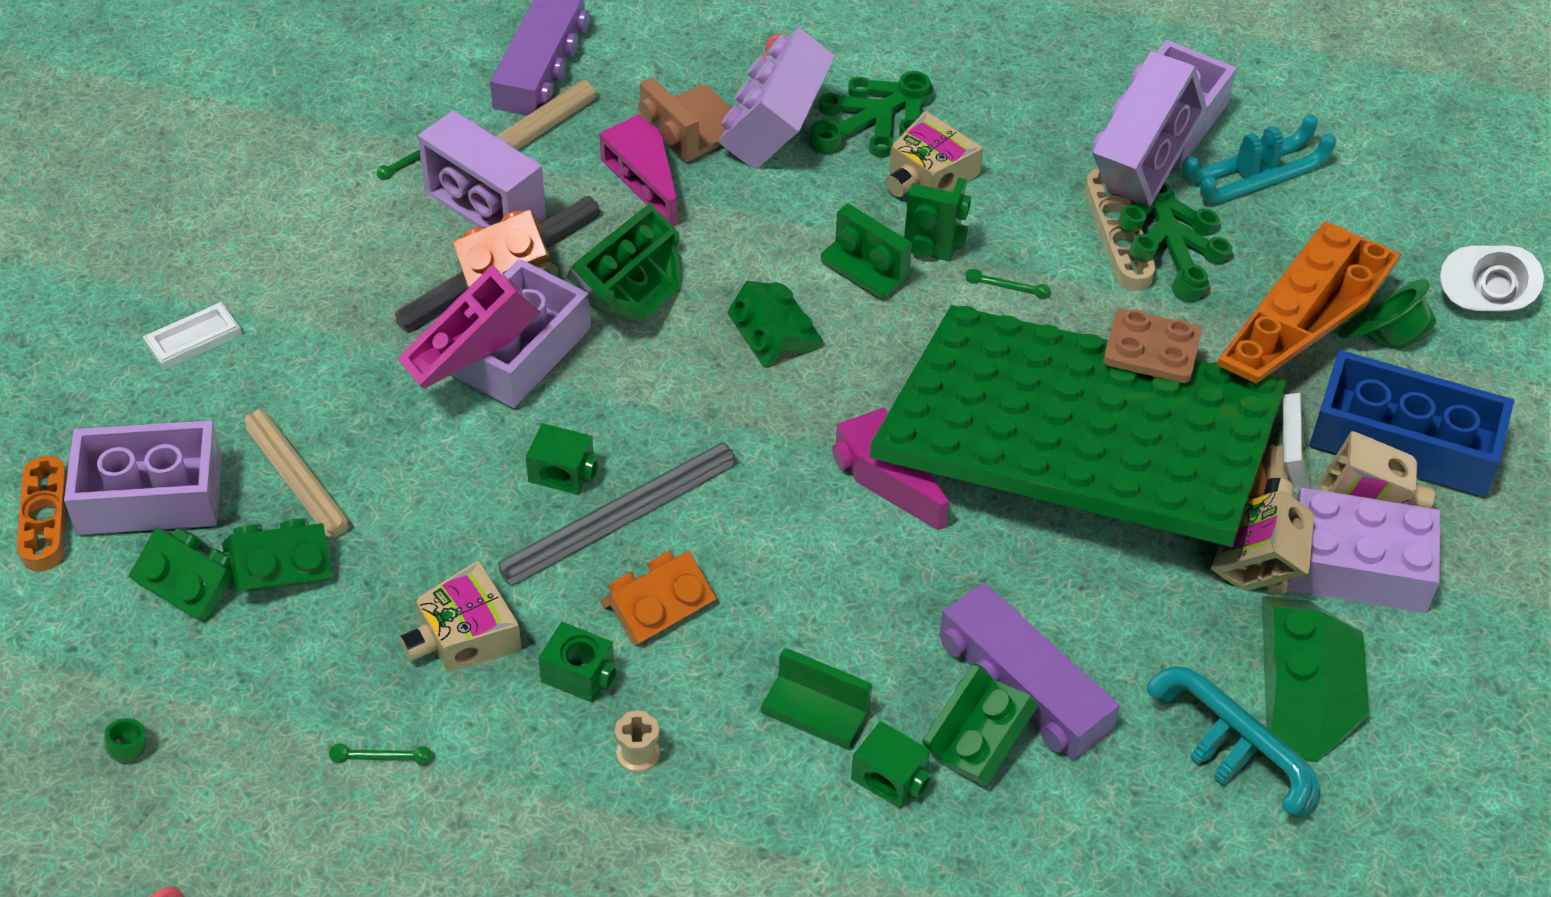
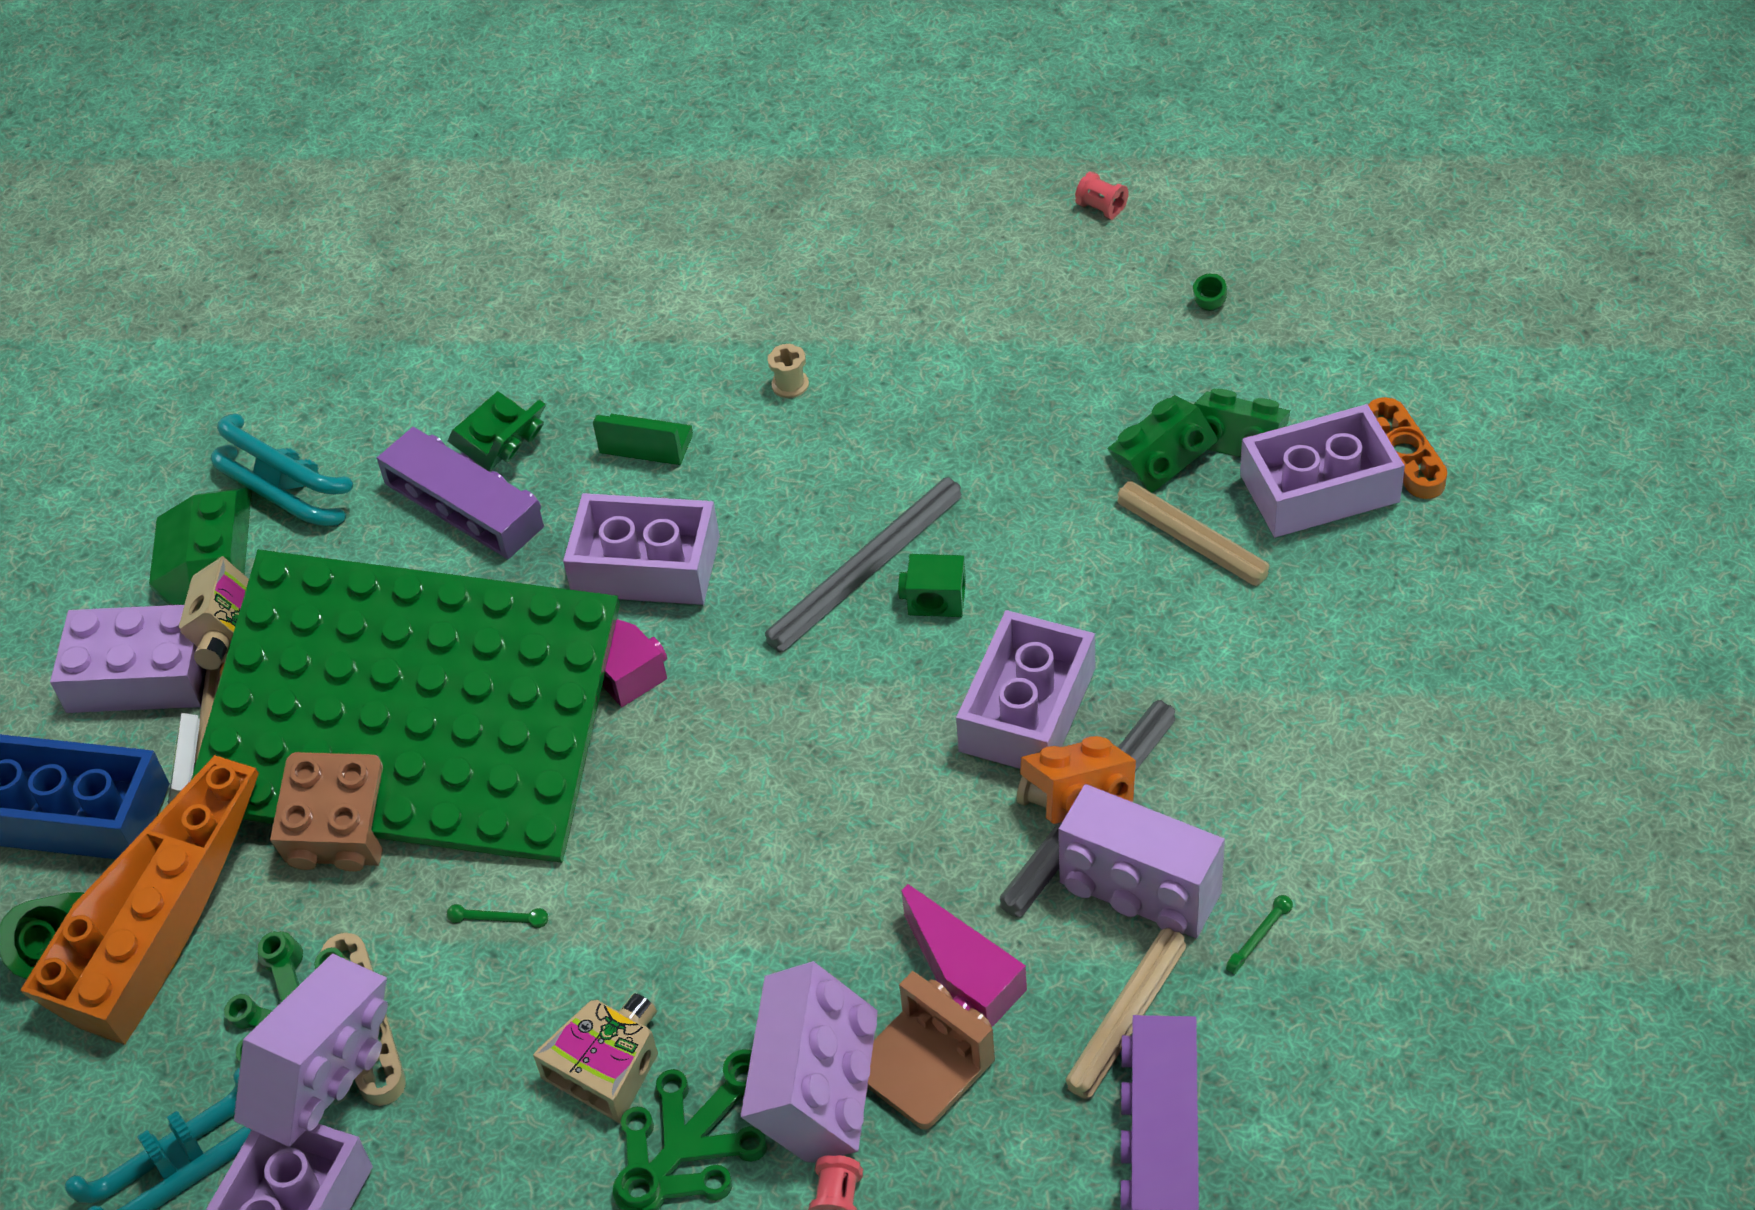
camera: 175 degrees right, 0 degrees up
(192, 336) = (1379, 649): white tile -> none
(339, 753) = (968, 341): green hinge -> none
(463, 622) = (968, 427): torso -> none
(474, 326) = (1051, 617): dark pink slope -> none
(573, 647) = (857, 417): green brick -> none
(632, 267) = (934, 779): green wedge -> none
(659, 597) = (808, 493): orange bracket -> none
(772, 321) = (754, 792): green bracket -> none
(838, 544) = (643, 548): none -> lavender brick
(868, 252) = (661, 889): green bracket -> none
(891, 765) = (573, 396): green brick -> none
(936, 220) = (580, 922): green bracket -> none
(1375, 472) = (114, 712): tan torso -> none

